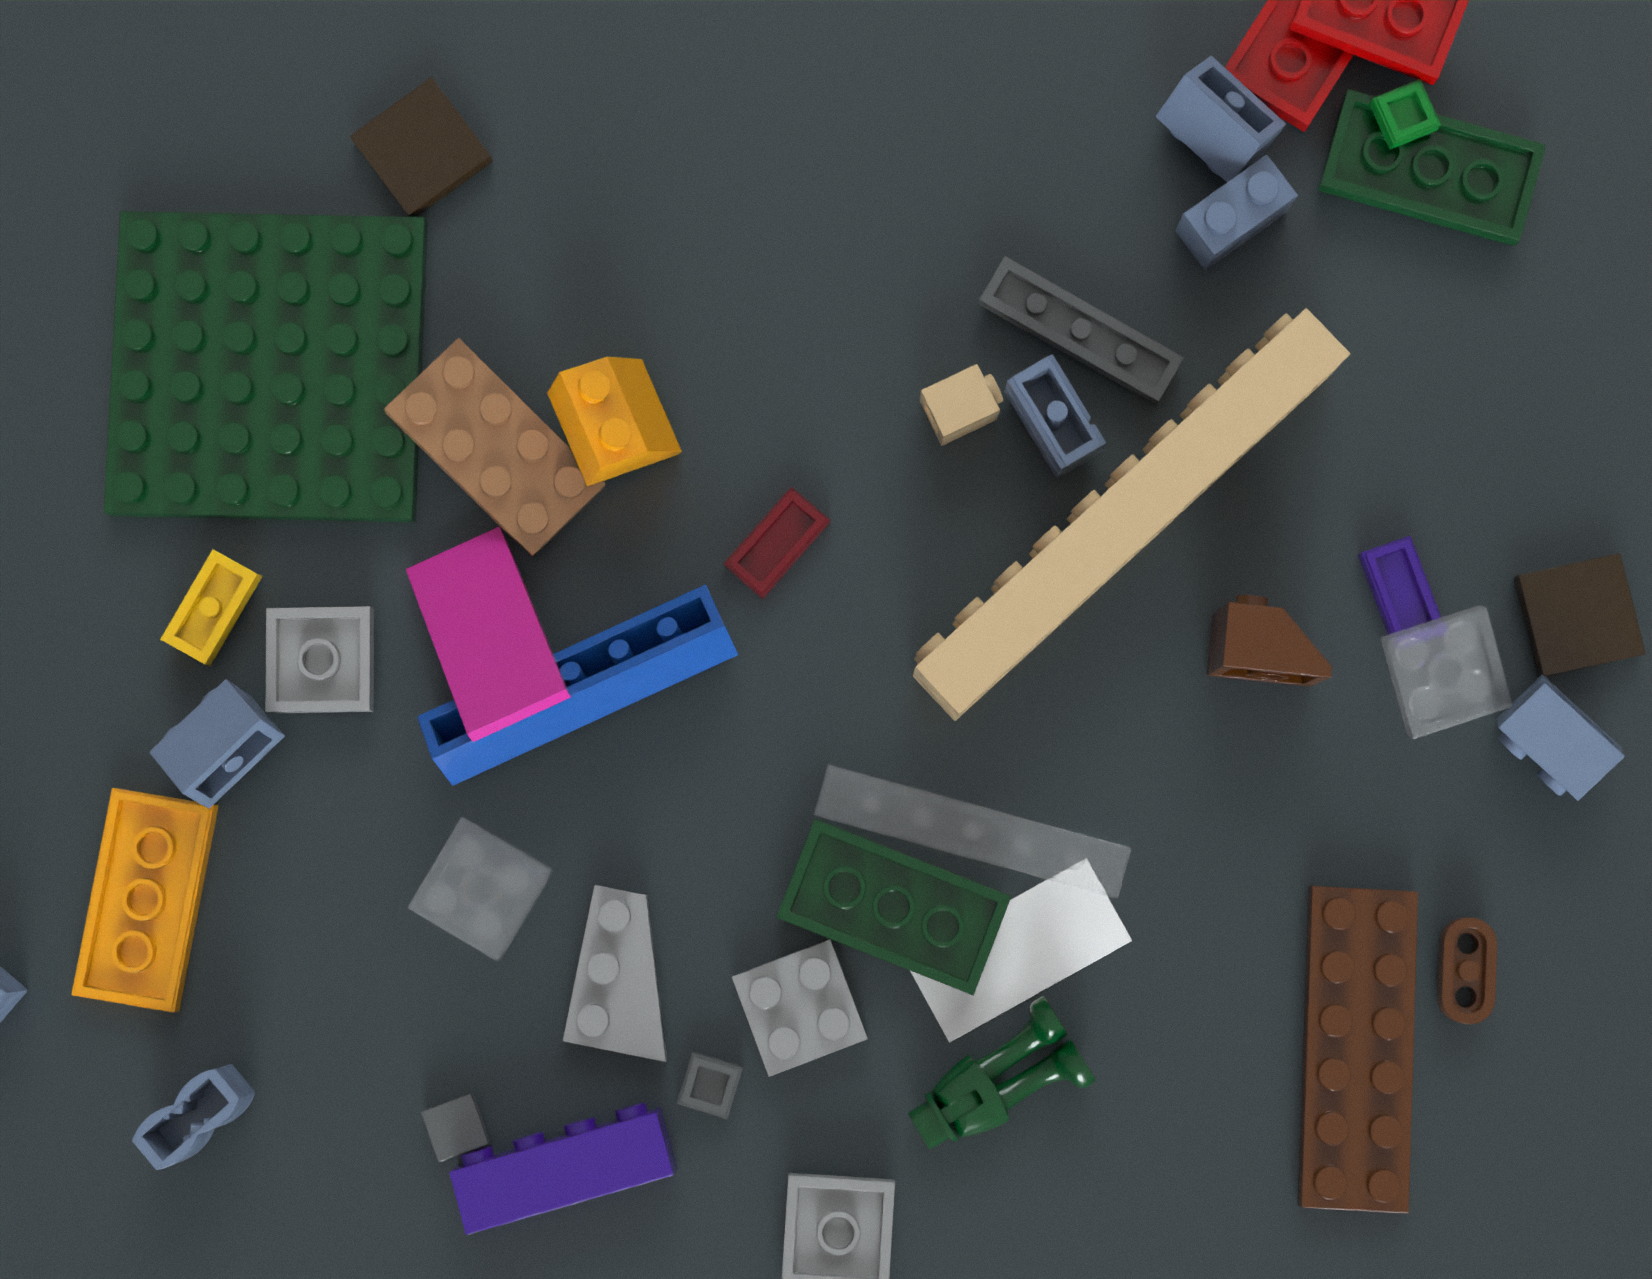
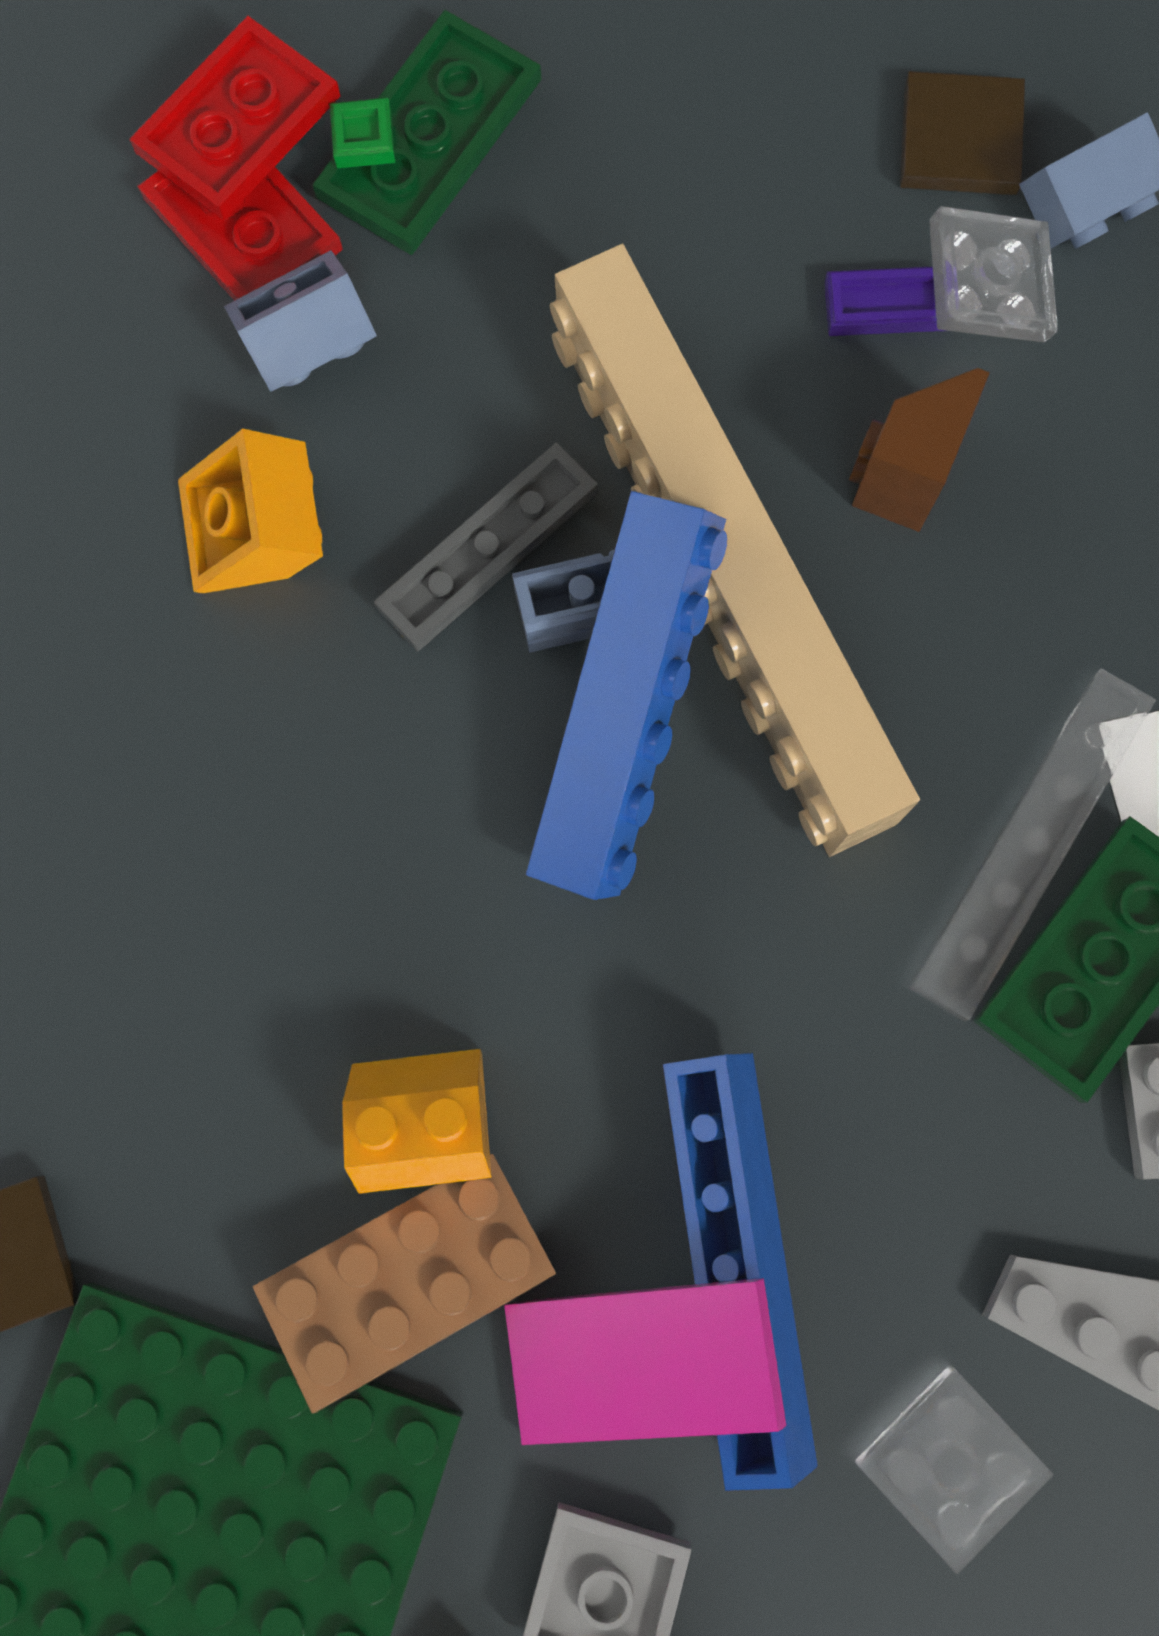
camera: 75 degrees left, 5 degrees down
(777, 542) = (626, 967): dark red tile -> none
(961, 403) = (530, 701): tan brick -> none
(978, 471) = (627, 696): none -> brick
(1048, 135) = (250, 513): none -> light orange slope
(1236, 212) = (410, 338): sand blue brick -> none

